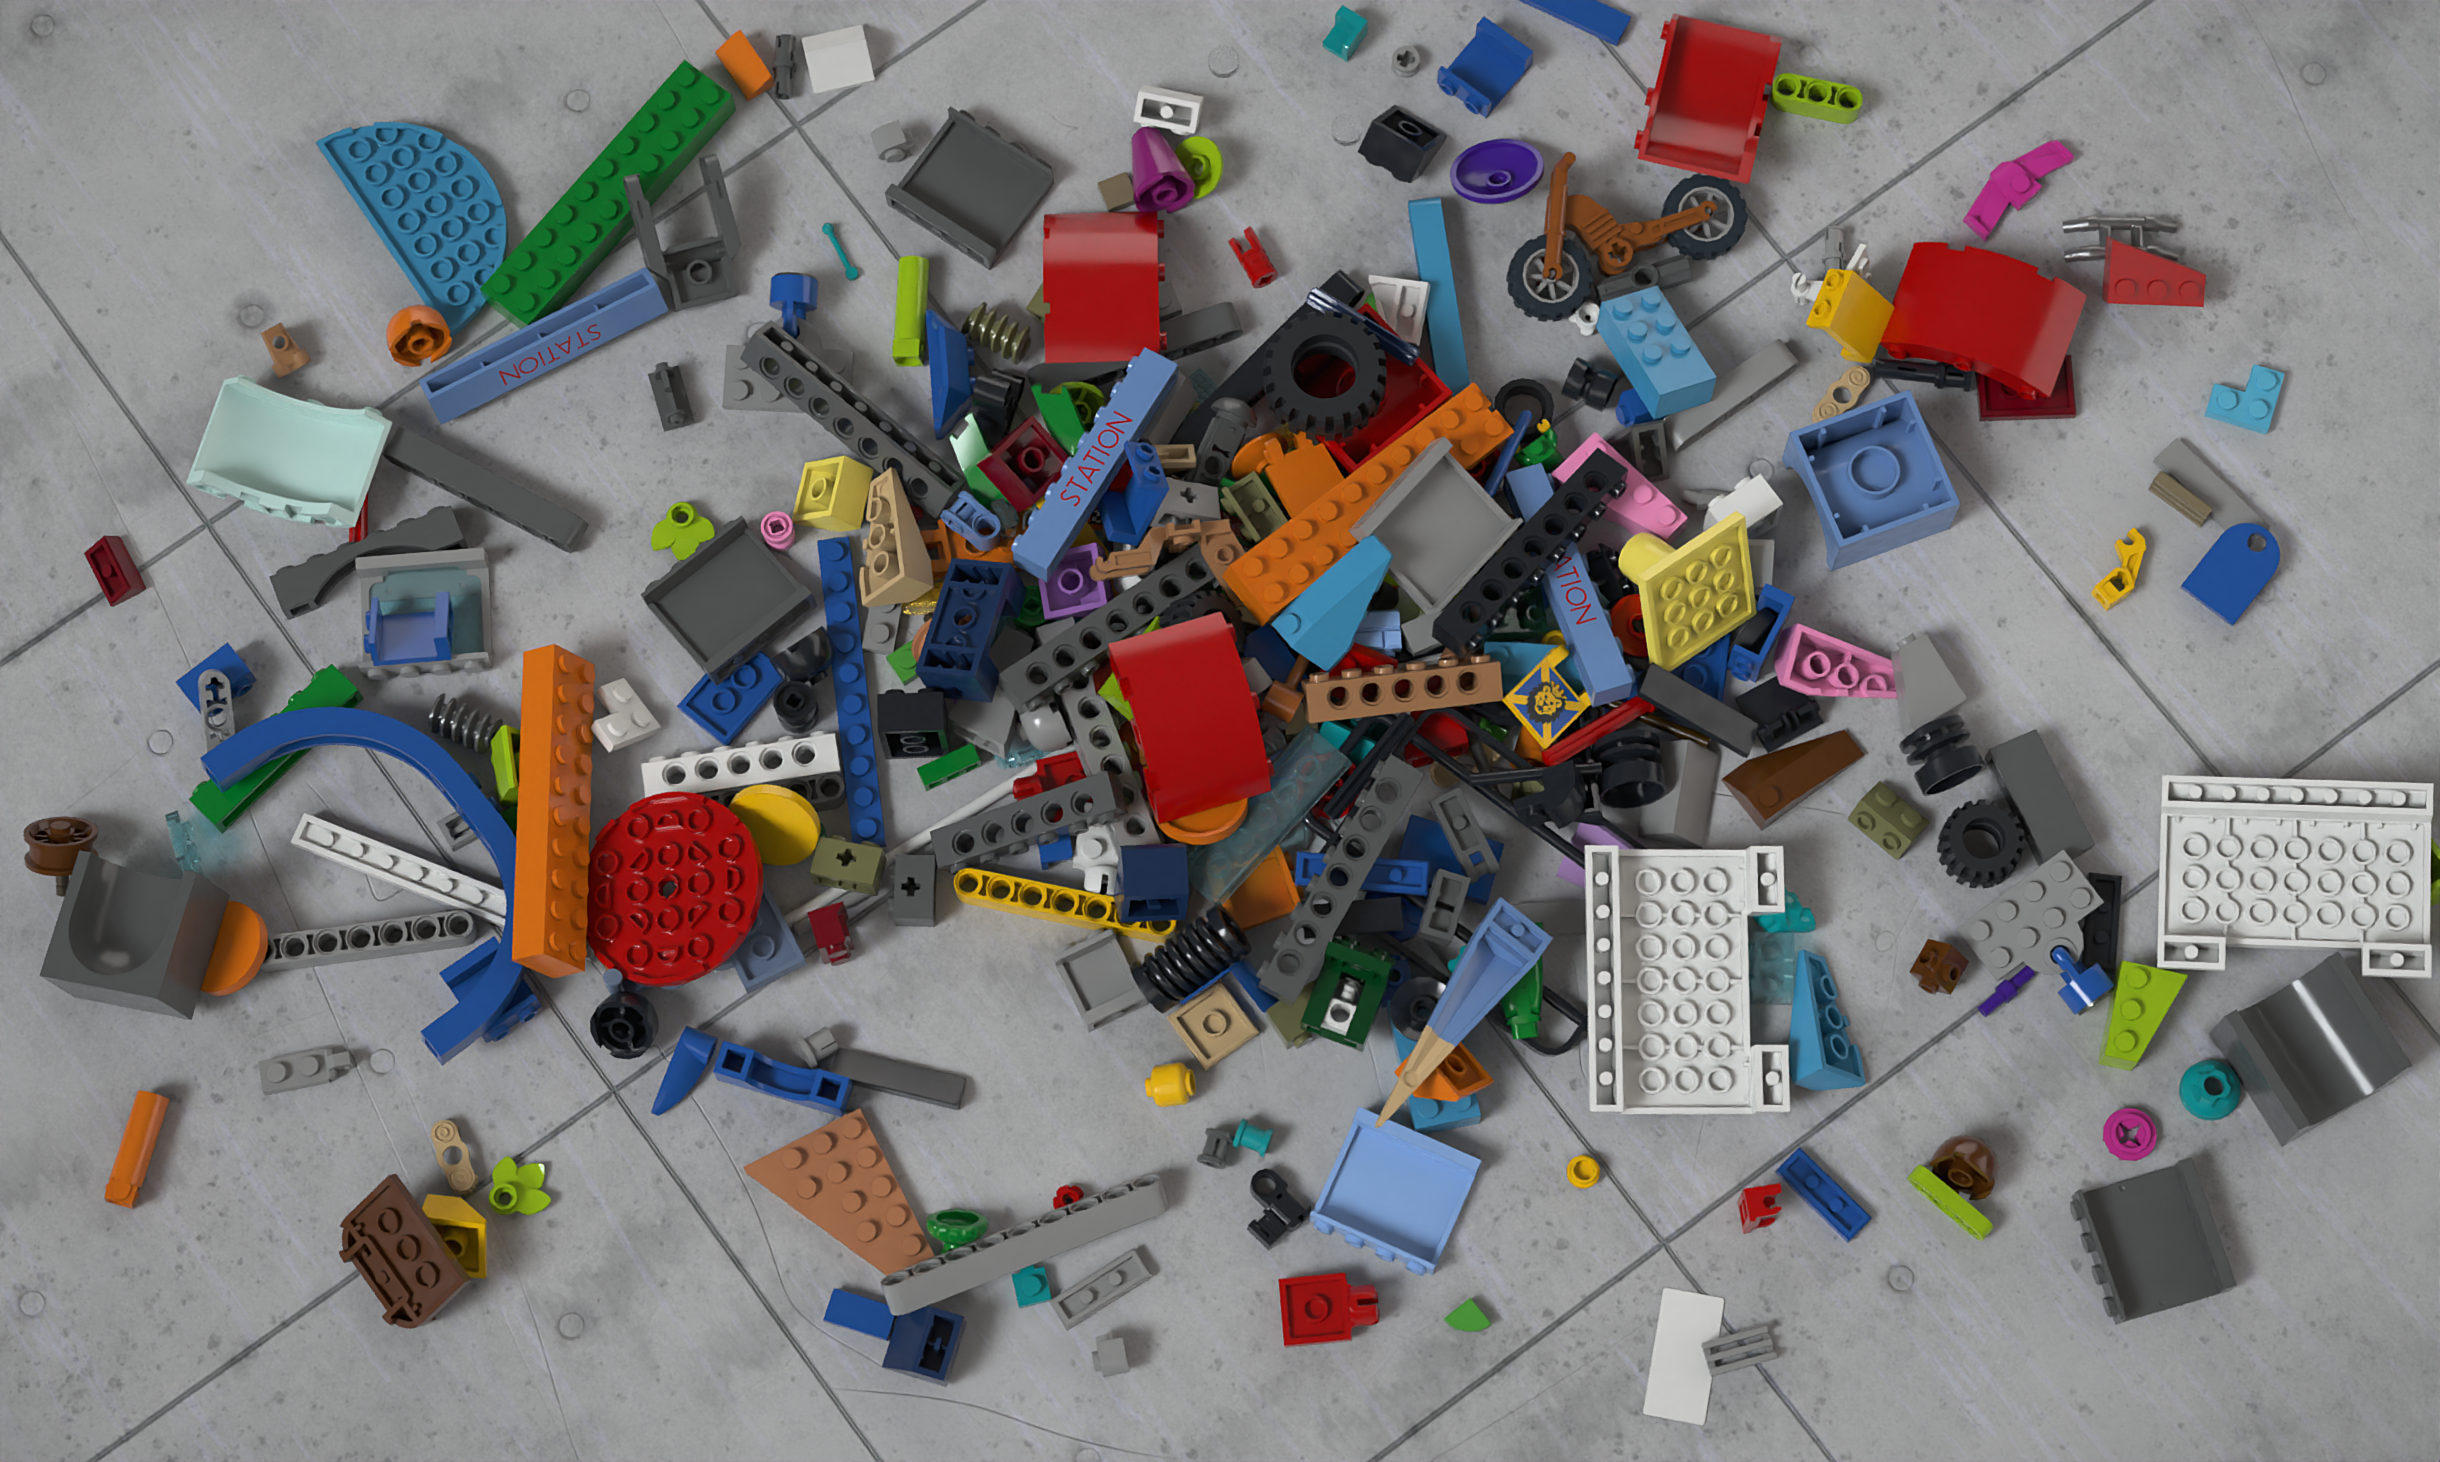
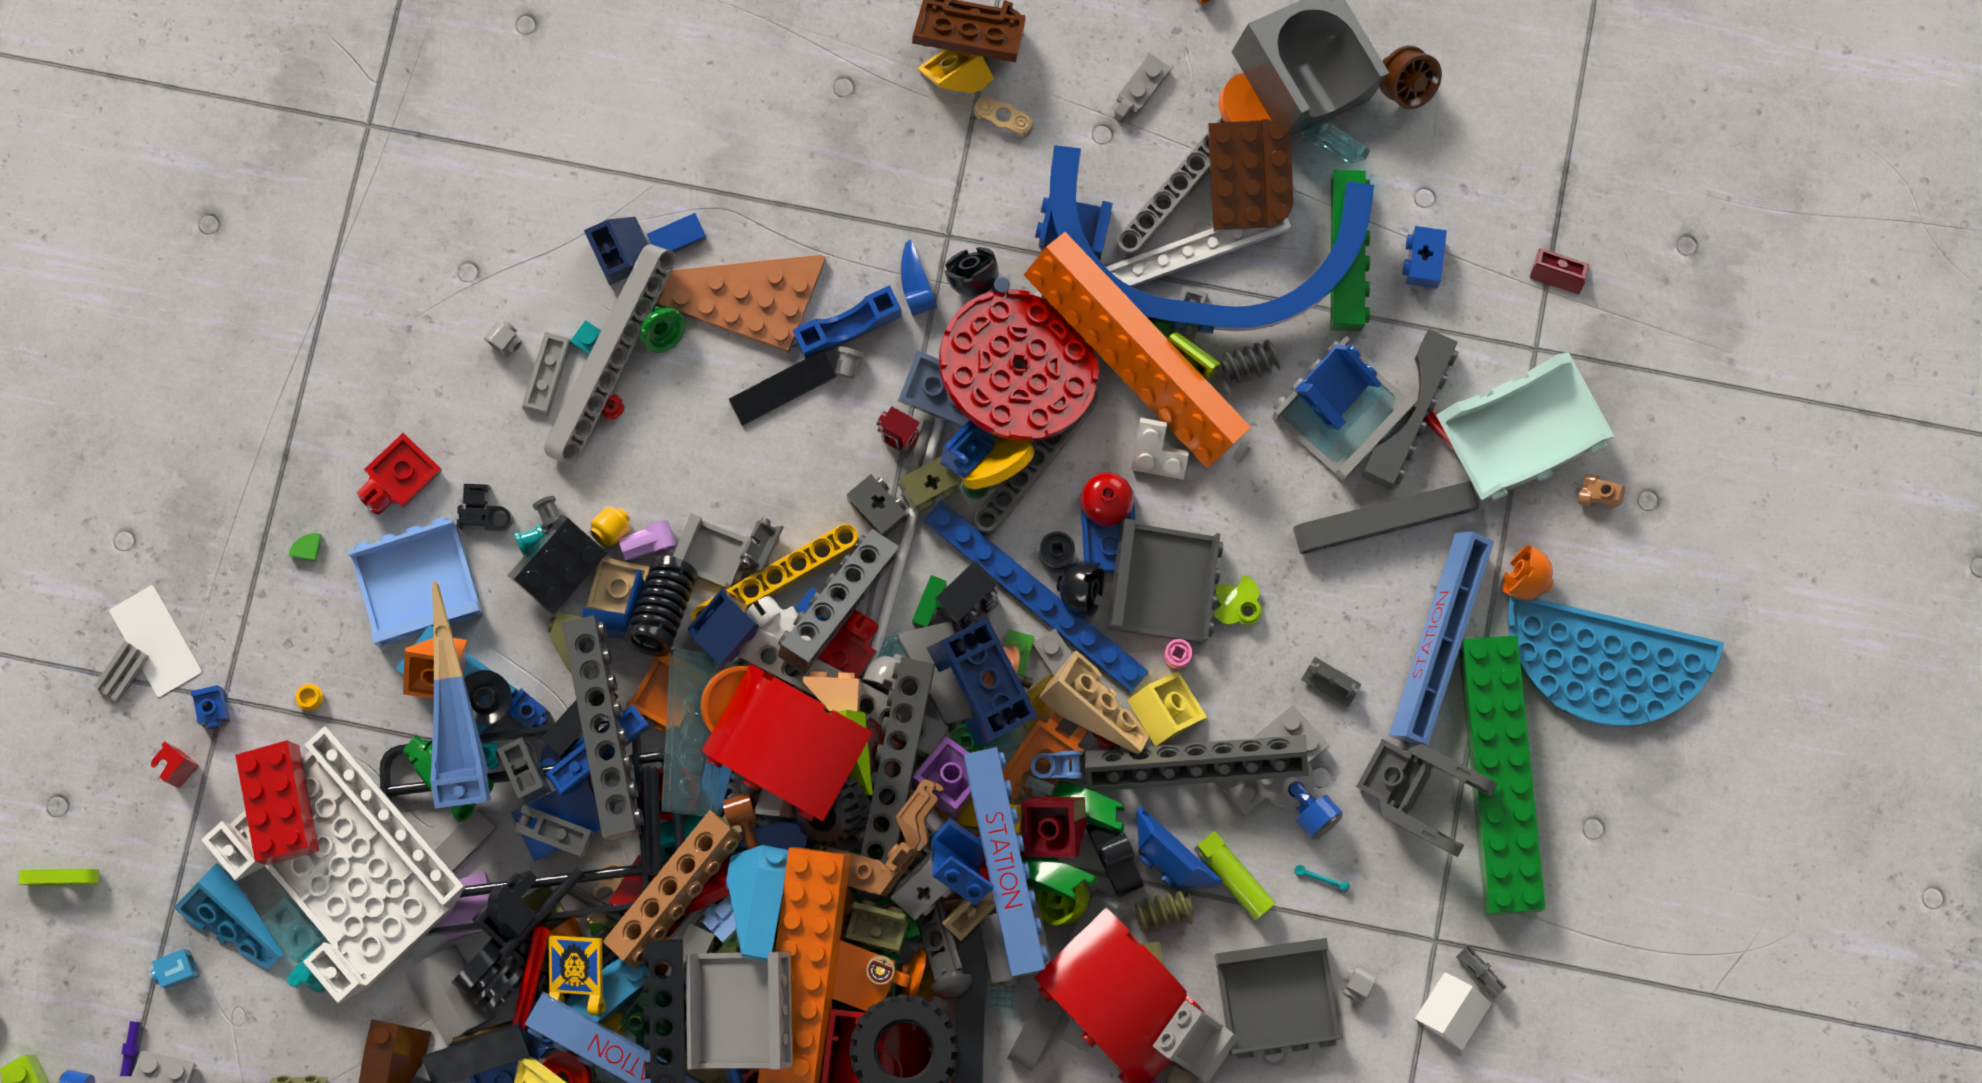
camera: 135 degrees right, 5 degrees up
(205, 693) = (1405, 241): light grey beam -> none
(293, 882) = (1250, 174): none -> reddish brown plate
(523, 1186) = (947, 135): lime plate -> none
(707, 714) = (1100, 507): none -> red cylinder
(745, 66) = (1508, 949): orange slope -> none
(757, 753) = (1090, 429): white brick -> none
(790, 856) = (966, 449): none -> blue hinge
(1051, 938) = (756, 556): none -> dark grey hinge
(1073, 201) = (1196, 1041): none -> light grey panel
(1105, 734) = (835, 693): none -> light nougat slope
(1141, 1038) = (655, 539): none -> lavender piece
(1250, 1085) = (557, 564): none -> black brick
(1284, 468) = (880, 969): none -> tile
(1359, 966) = (549, 689): dark green brick -> none
(1676, 1250) = (219, 712): none -> blue brick
(1692, 1082) = (277, 803): none -> red brick
(1823, 1195) = (146, 814): blue tile -> none
(1909, 1025) = (174, 969): none -> dark azure brick
(1938, 967) = (183, 1023): reddish brown brick -> none
(1966, 1166) = (64, 909): reddish brown cylinder -> none

